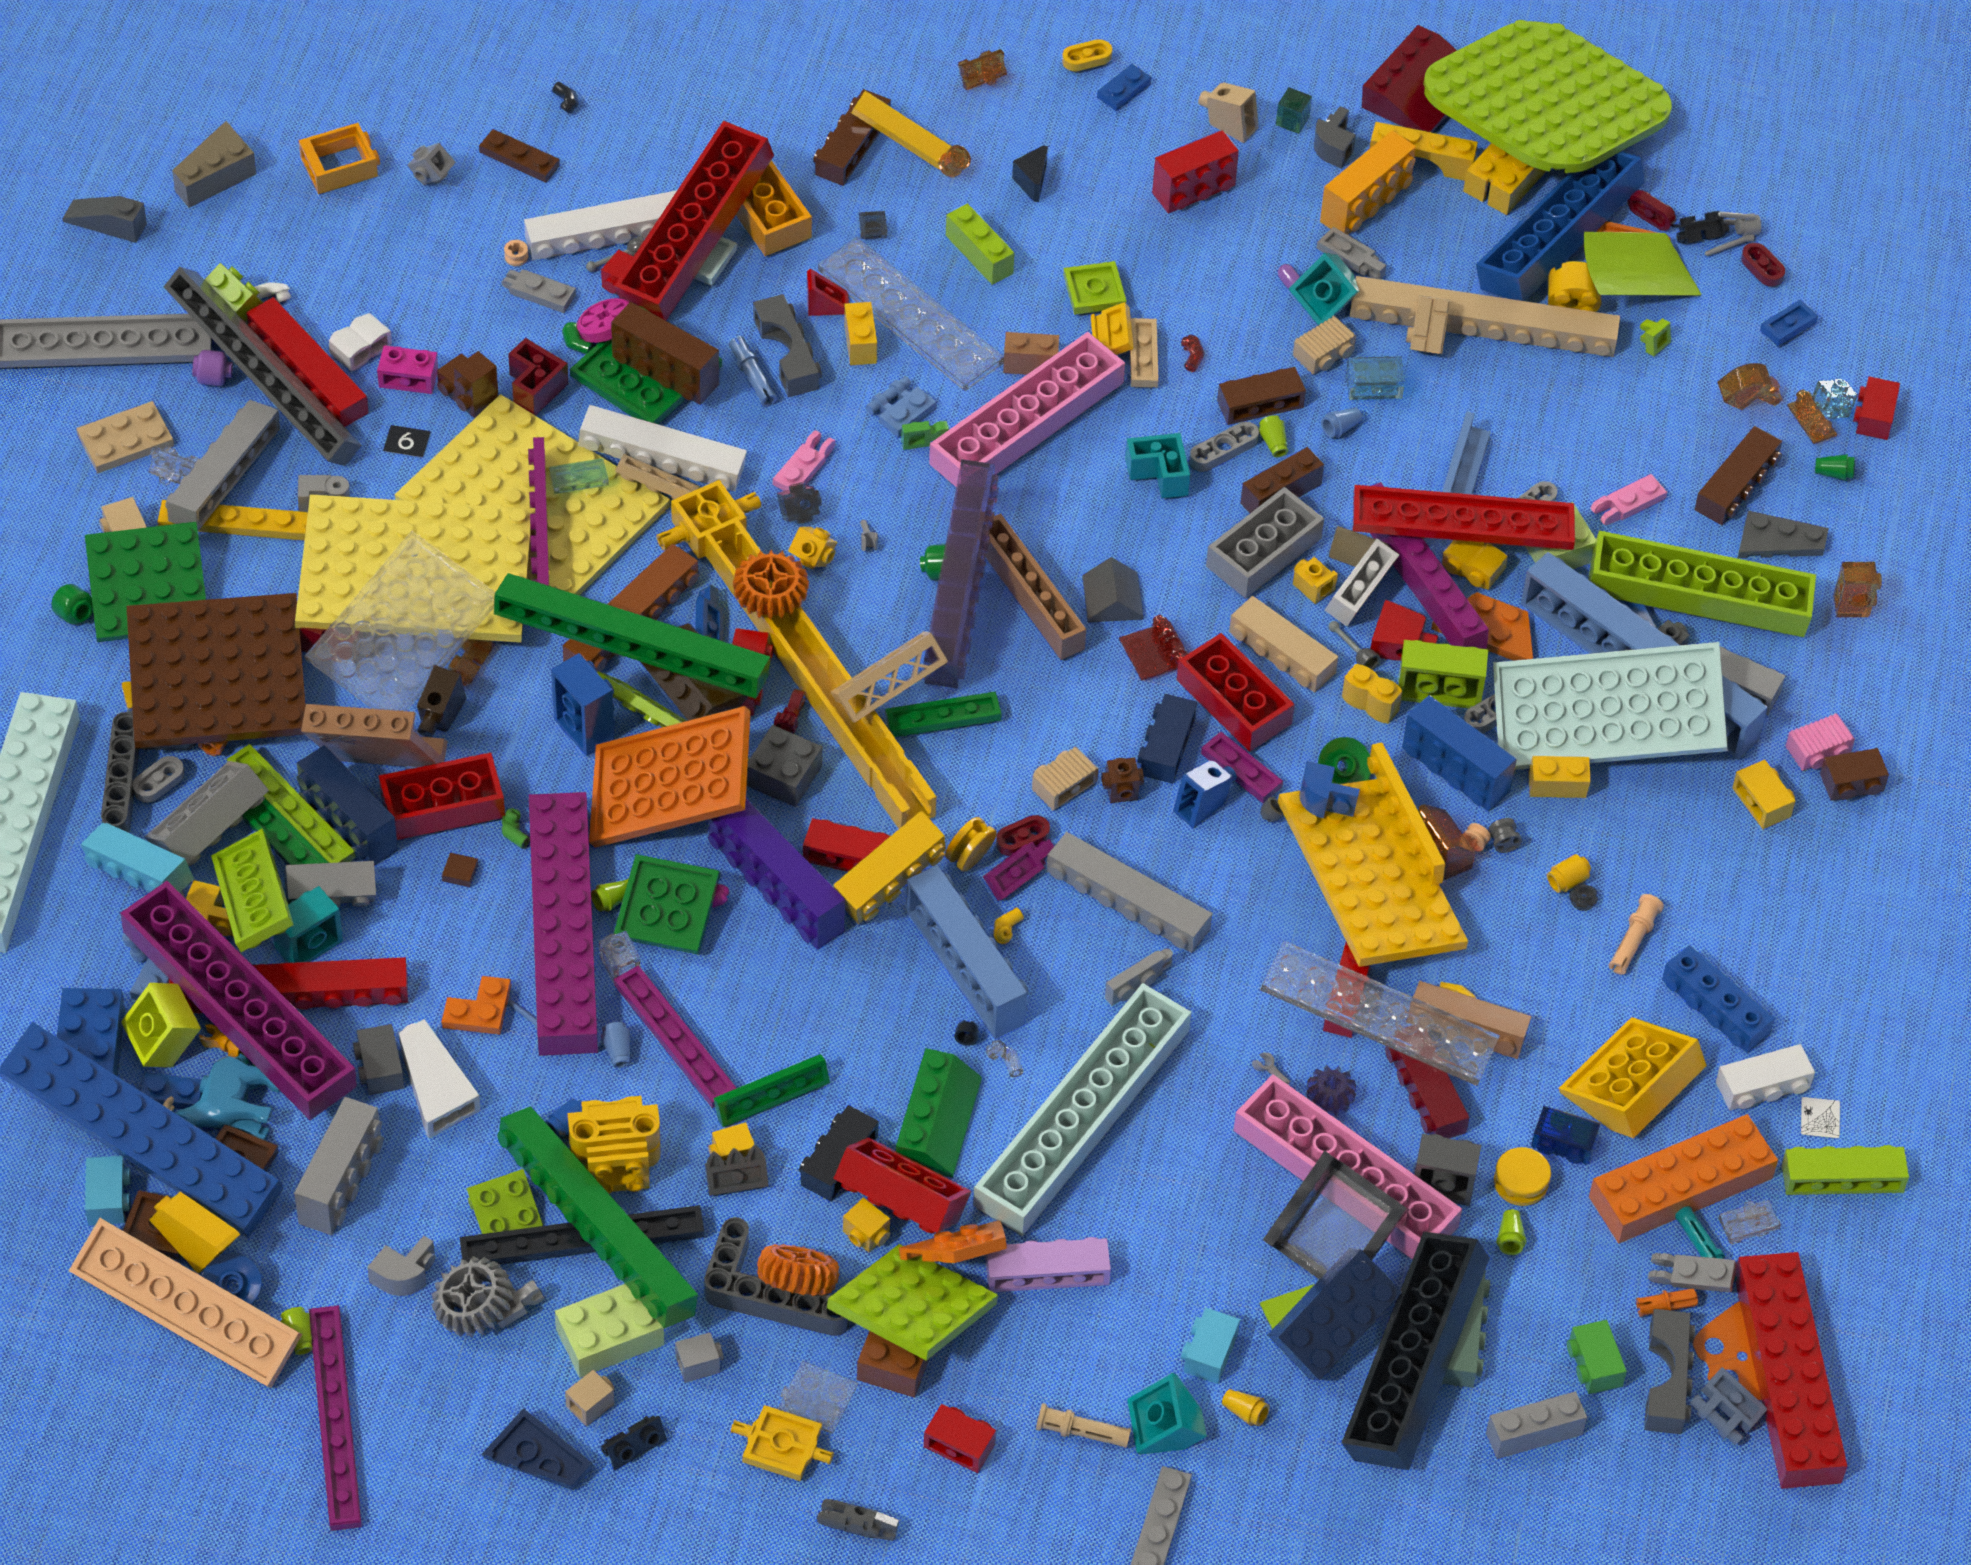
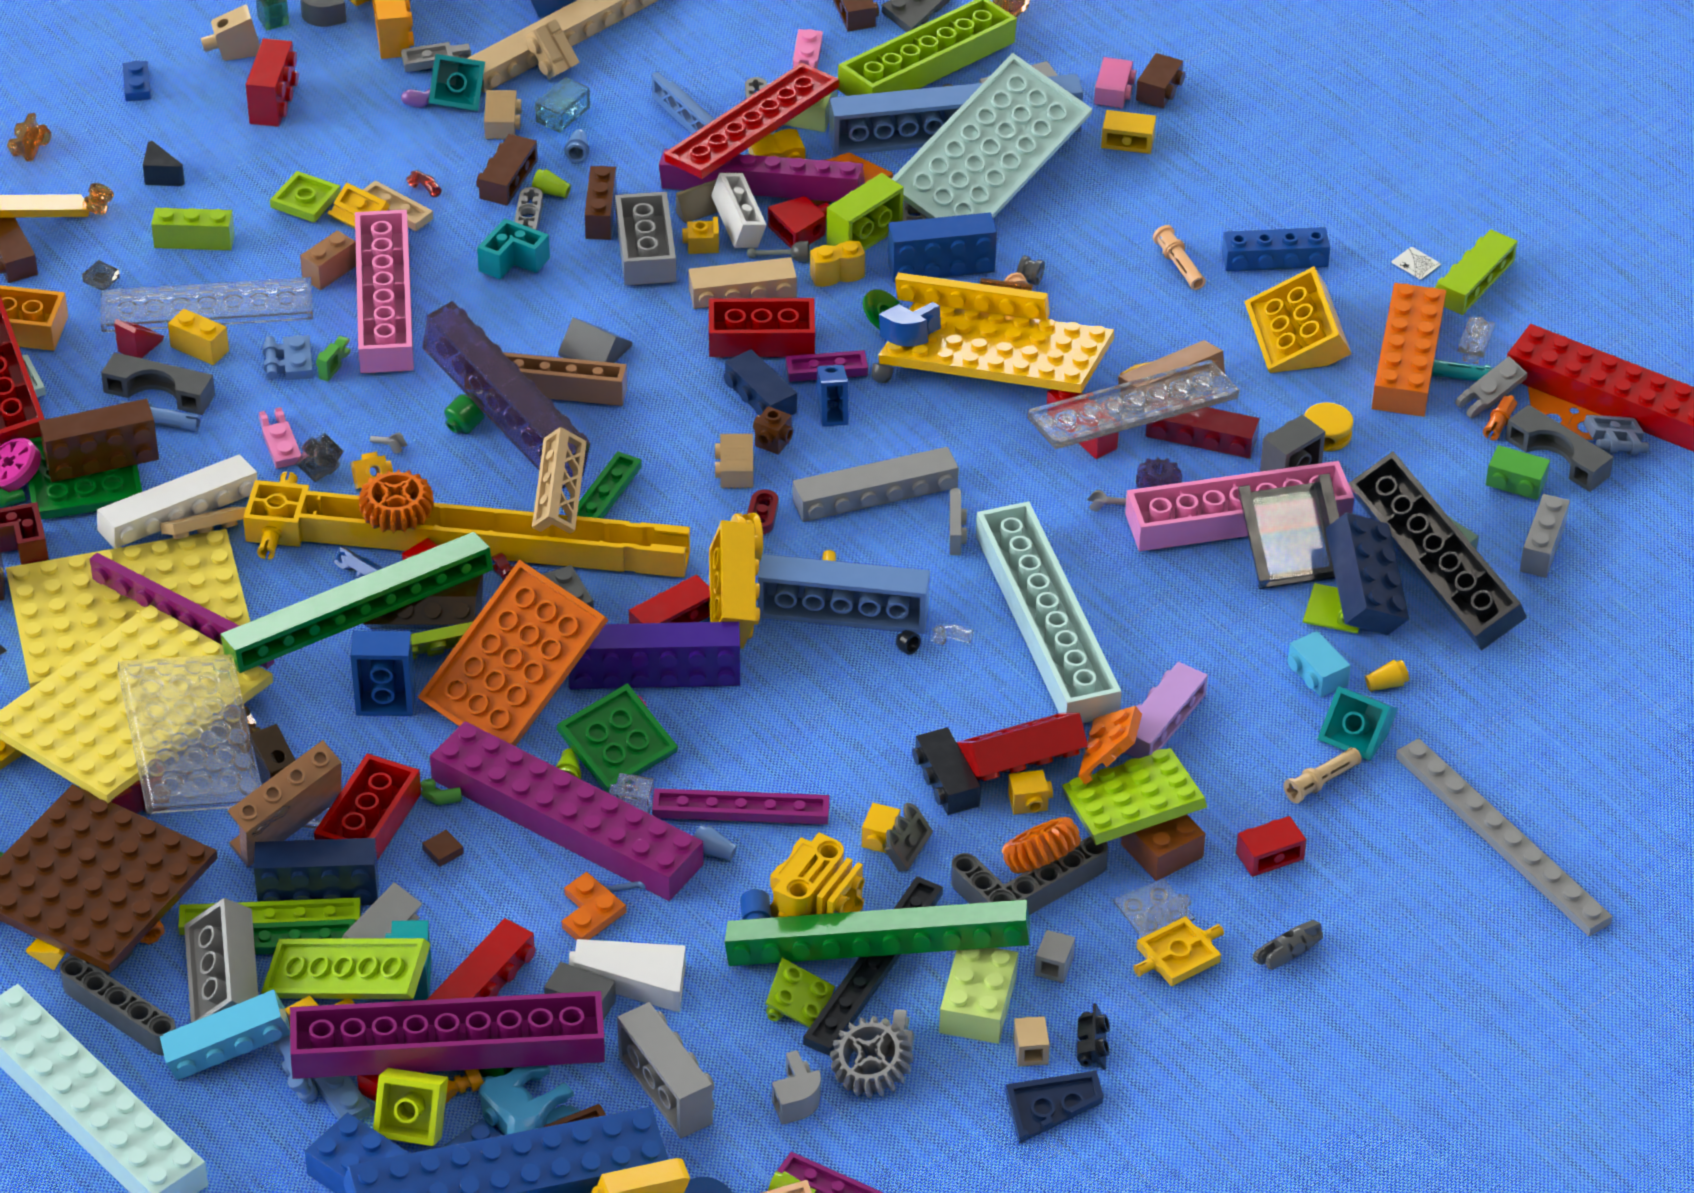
camera: 50 degrees left, 10 degrees down
(156, 779) = (147, 980): light grey plate -> none
(578, 475) = (151, 558): clear light blue plate -> none
(646, 596) = (303, 581): dark orange brick -> none
(771, 1090) = (850, 777): green plate -> none
(939, 1112) = (960, 695): green slope -> none
(1017, 868) = (790, 529): magenta hinge -> none
(1087, 55) = (85, 80): yellow plate -> none
(1154, 649) = (671, 350): clear red hinge -> none
(1511, 1233) = (1365, 456): lime cone -> none
(1559, 776) = (1013, 213): yellow brick -> none
(1565, 1135) = (1315, 385): clear blue brick -> none
(1569, 873) = (1095, 259): yellow brick -> none
(1581, 902) = (1120, 265): clear smoke plate -> none
(1765, 1077) = (1364, 265): white brick -> none

